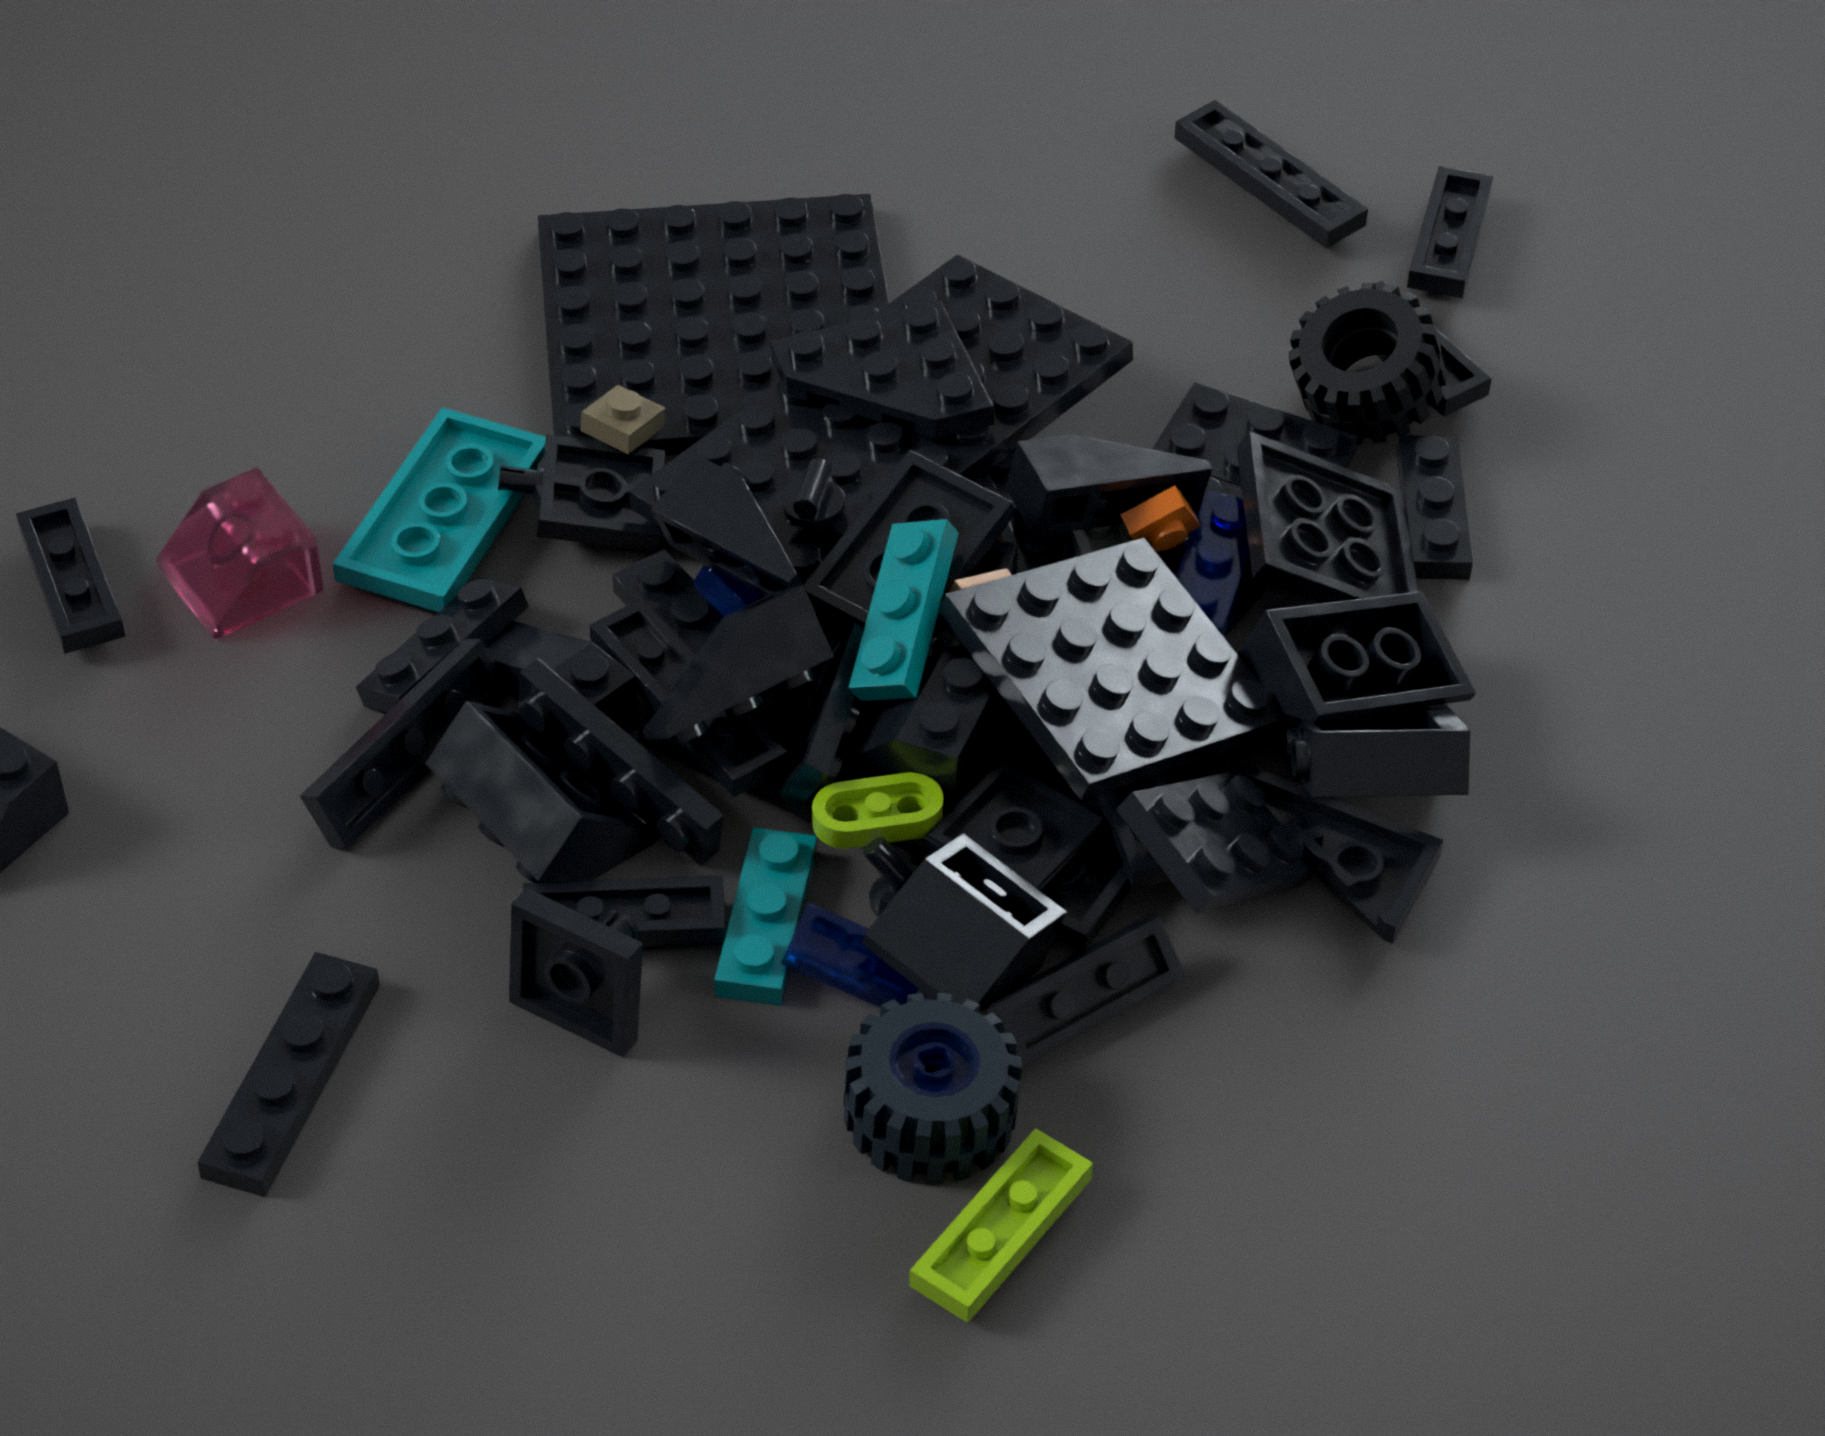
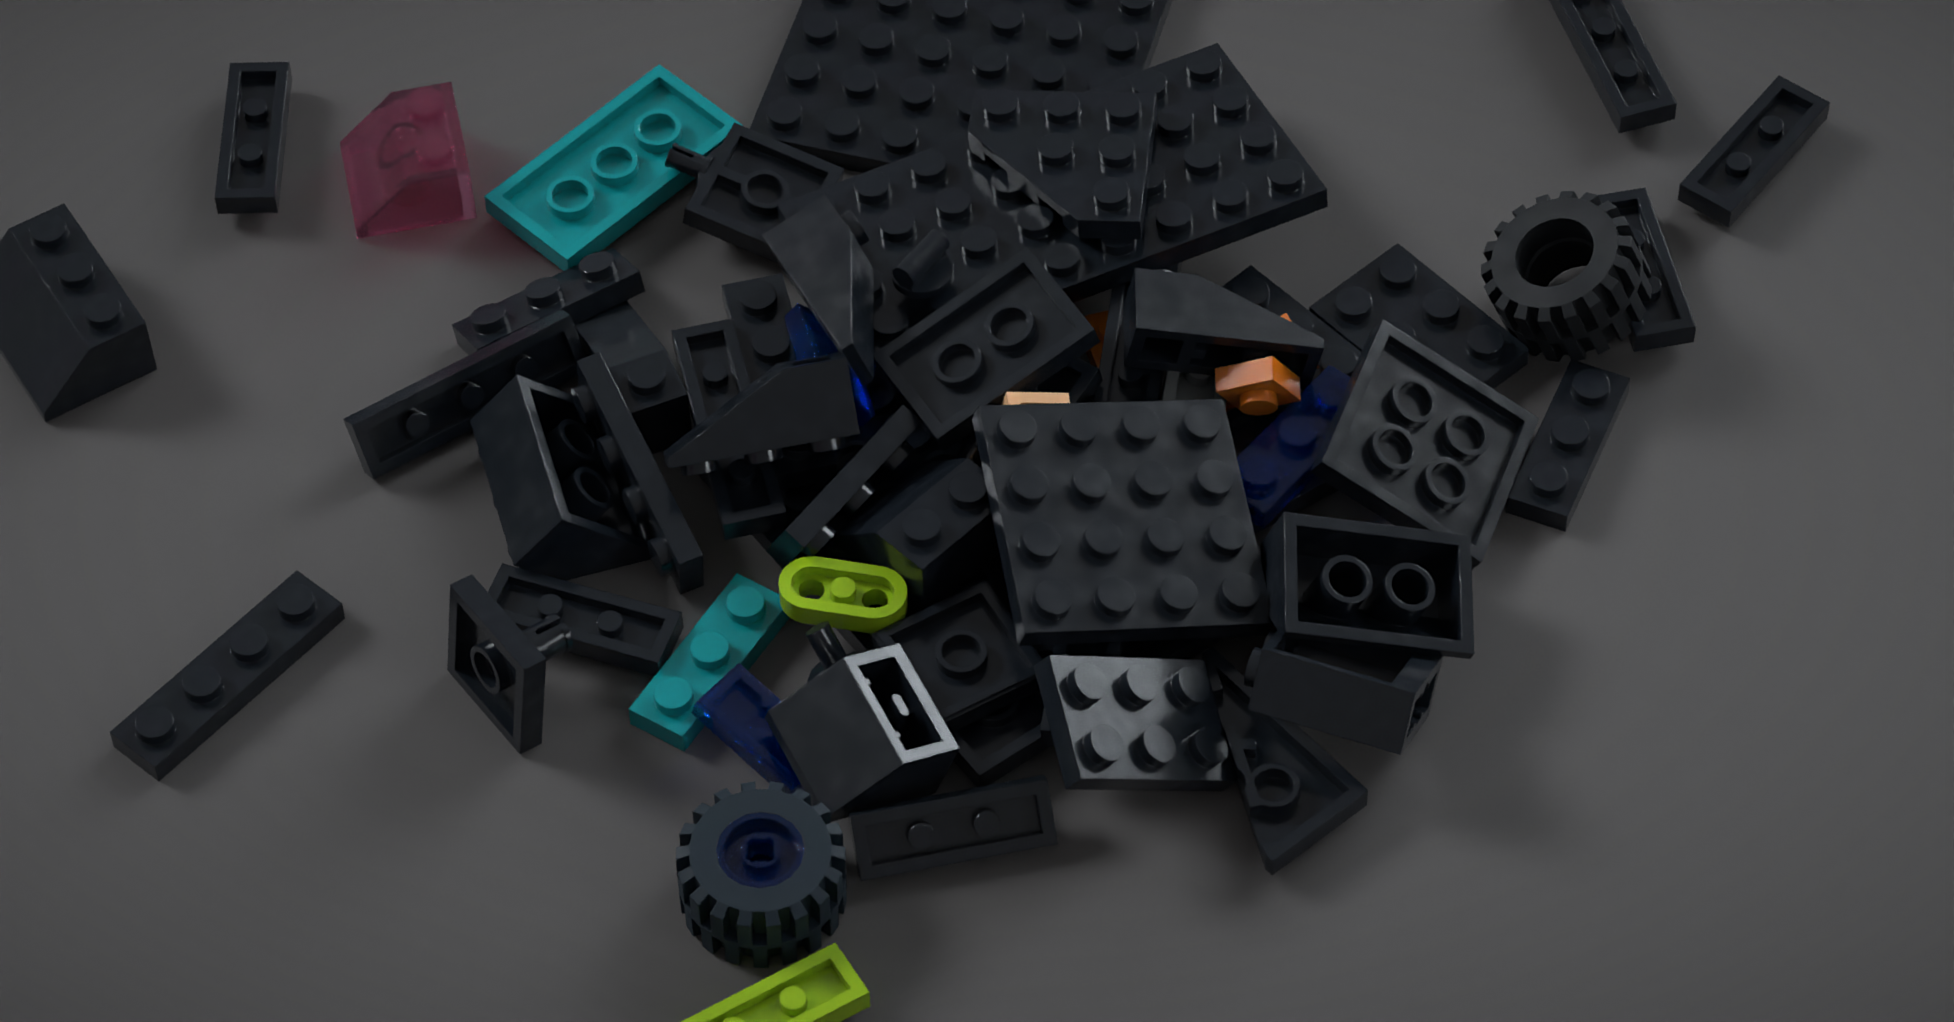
camera: 25 degrees right, 5 degrees up
(622, 419) = (813, 127): dark tan plate -> none
(903, 610) = (943, 407): teal plate -> none

